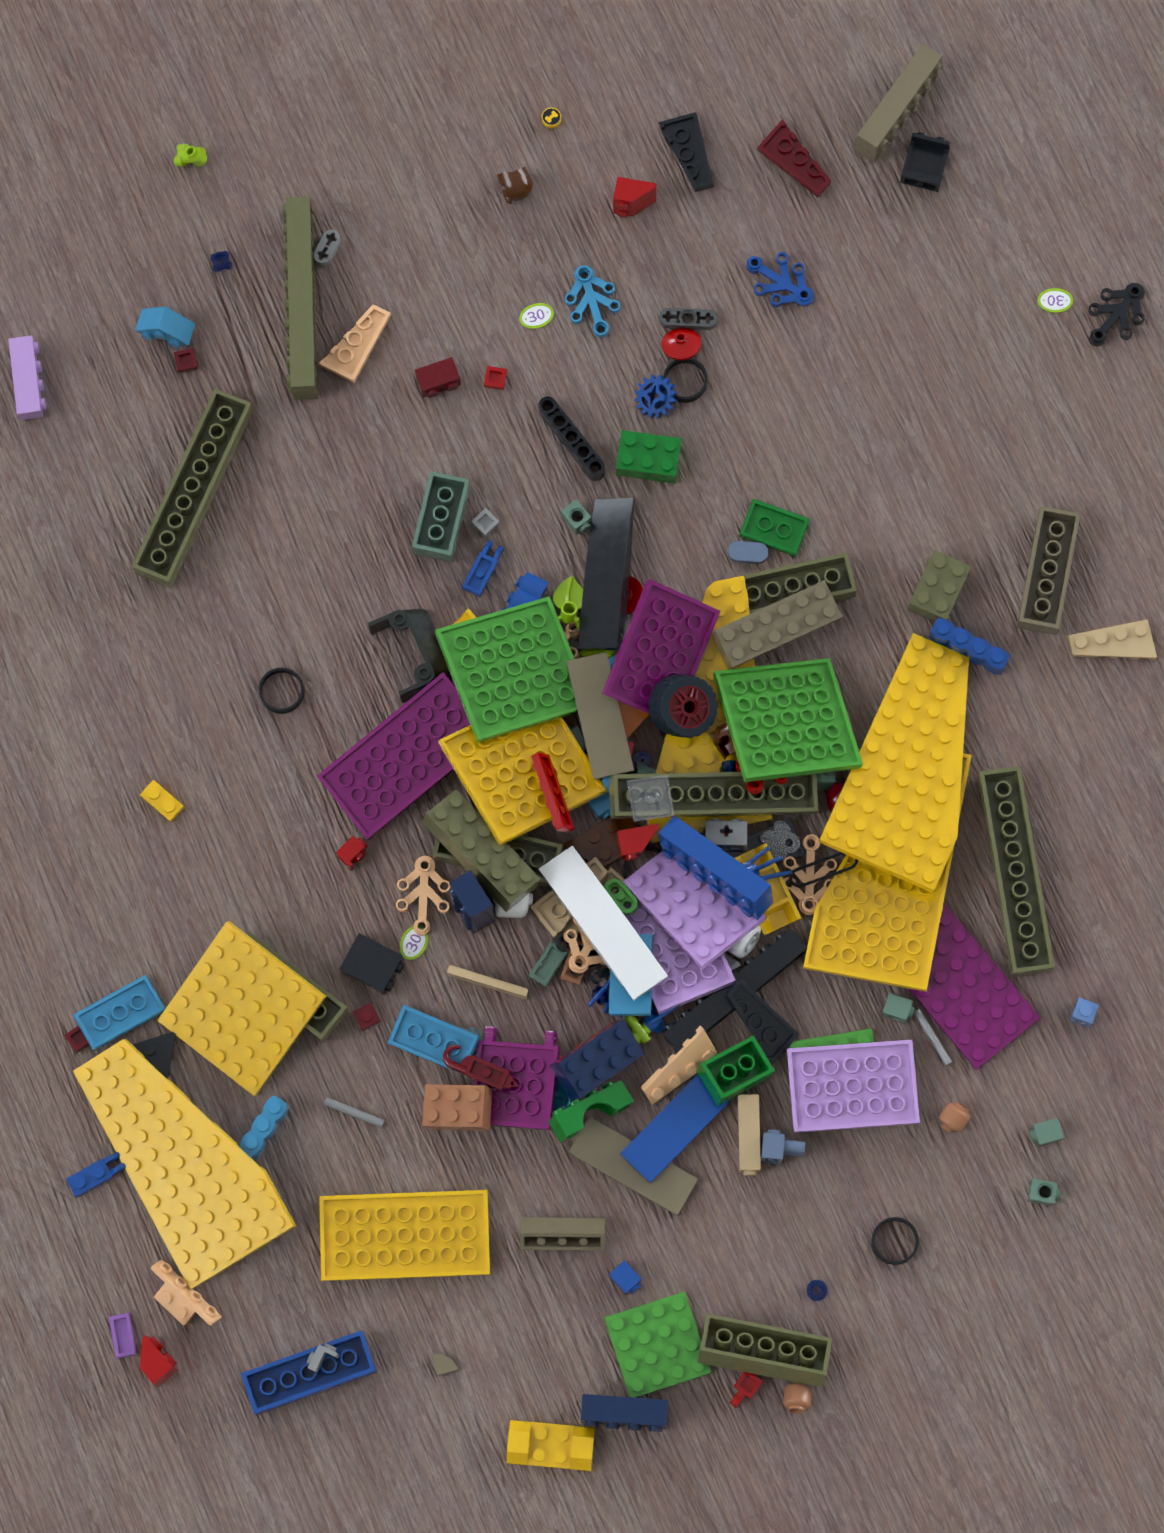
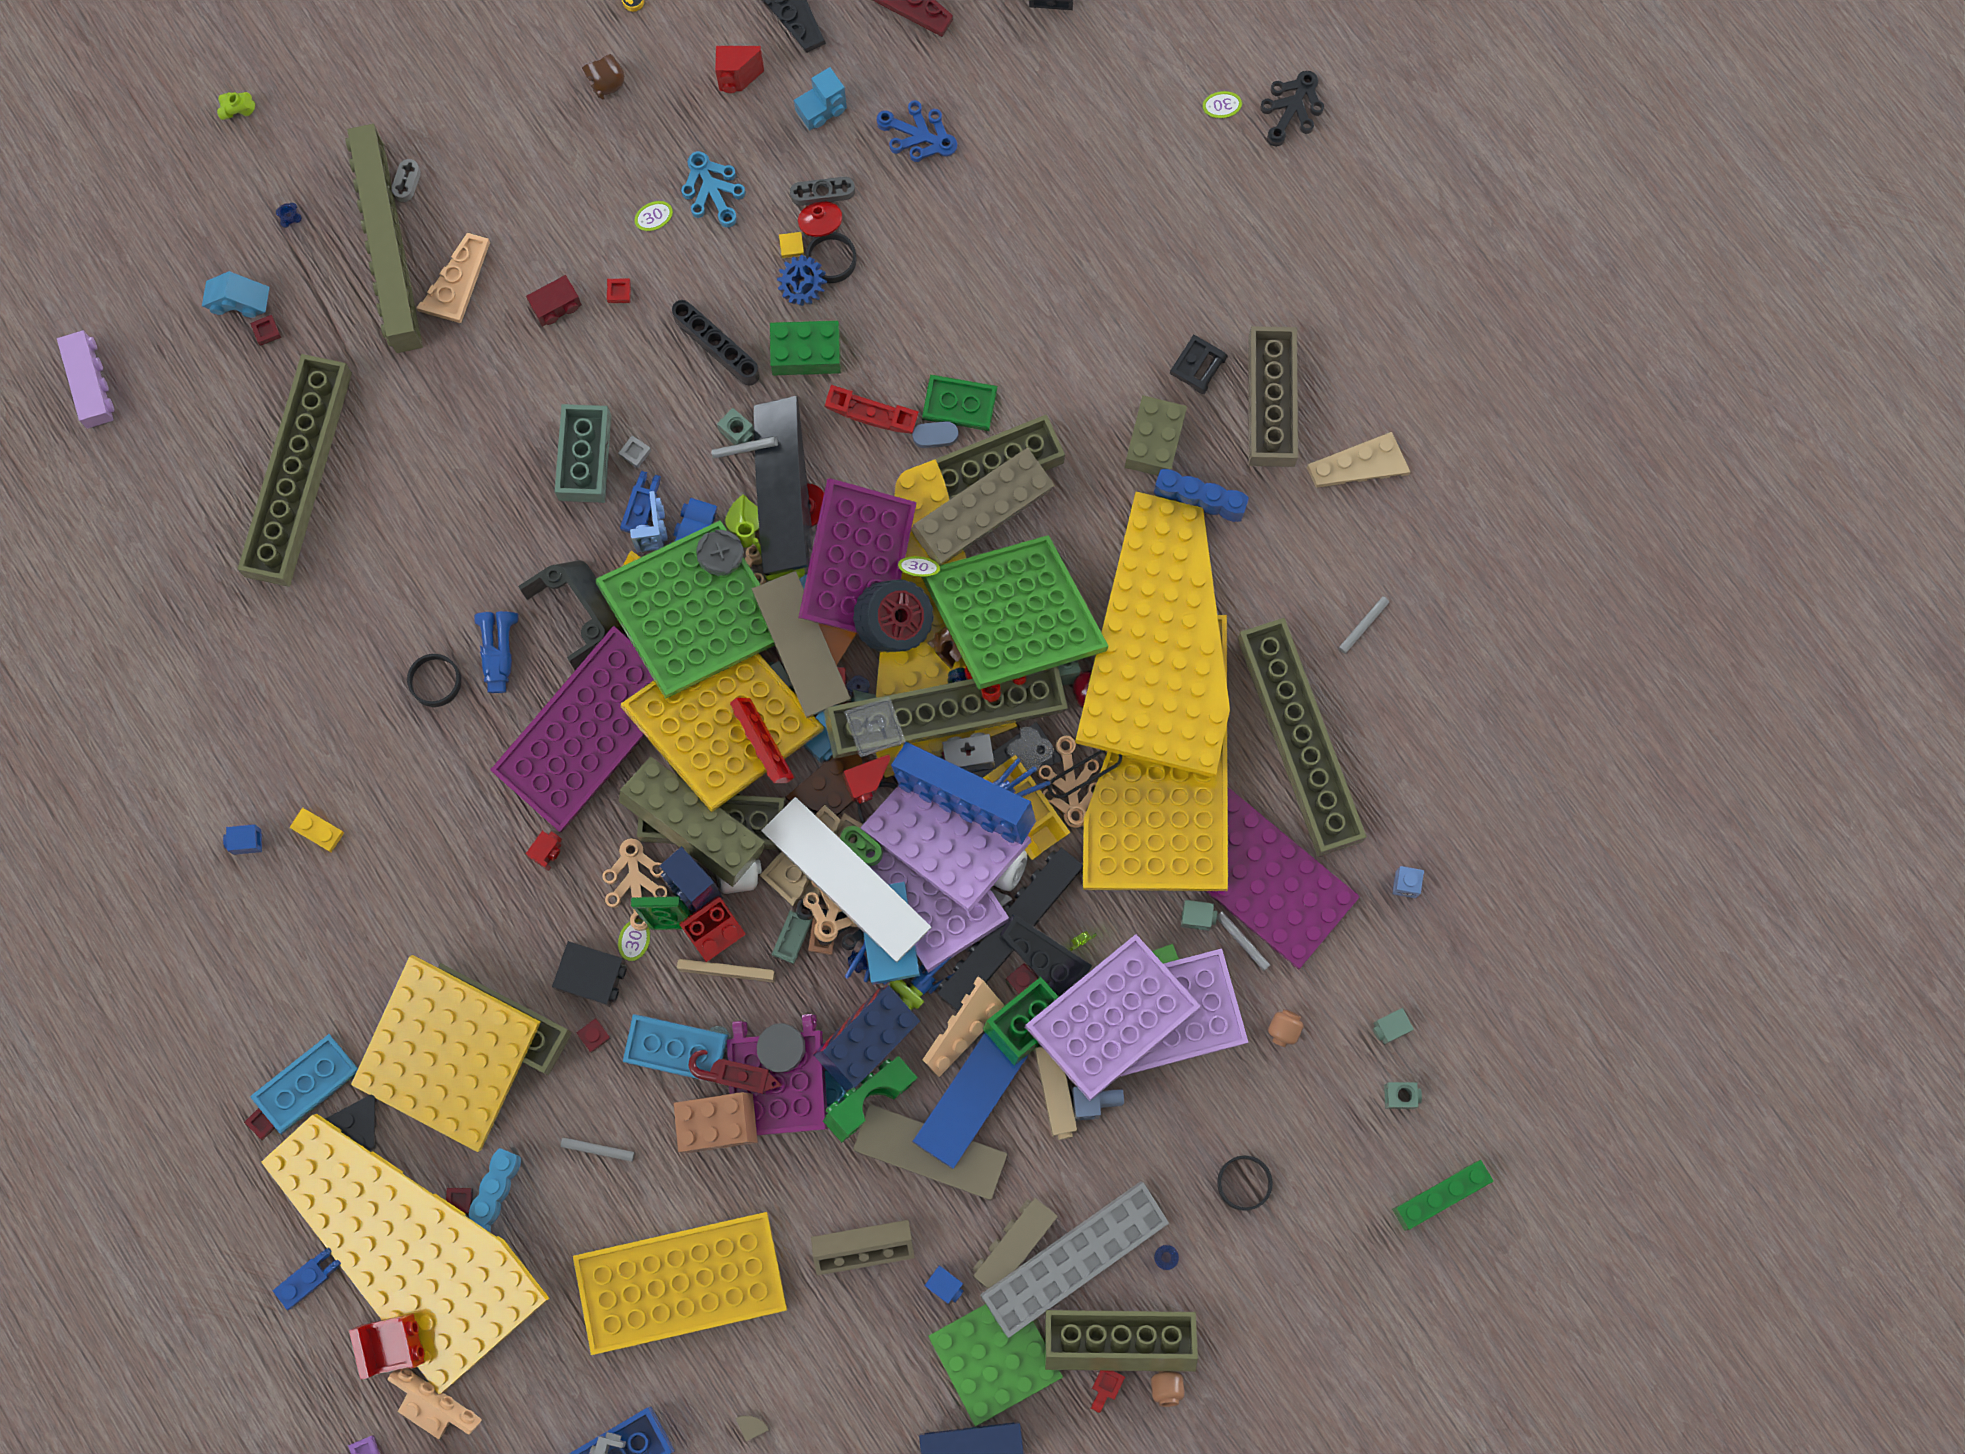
camera: 15 degrees left, 0 degrees up
(99, 798) = (243, 839): none -> blue brick
(154, 1240) = (387, 1345): none -> panel
(234, 1130) = (460, 1198): none -> dark red plate
(338, 684) = (496, 662): none -> blue piece
(445, 924) = (661, 912): none -> green tile
(482, 944) = (712, 928): none -> red slope
(488, 601) = (651, 538): none -> light blue bracket
(523, 1054) = (780, 1048): none -> dark grey tile
(544, 624) = (719, 552): none -> dark grey tile
(581, 535) = (744, 447): none -> light grey bar
(652, 362) = (791, 245): none -> yellow tile
(690, 1257) = (1016, 1244): none -> dark tan brick
(695, 523) = (870, 412): none -> red slope
(702, 239) = (823, 101): none -> dark azure brick
(712, 667) = (919, 566): none -> sticker
(737, 1034) = (1021, 978): none -> dark red plate
(739, 1276) = (1074, 1259): none -> light grey plate
(794, 1010) = (1081, 939): none -> clear neon green plate
(808, 1079) = (1112, 1017): none -> lavender plate
(984, 525) = (1191, 361): none -> black plate
(1061, 1281) = (1442, 1195): none -> green arch
(1090, 784) = (1363, 625): none -> light grey bar

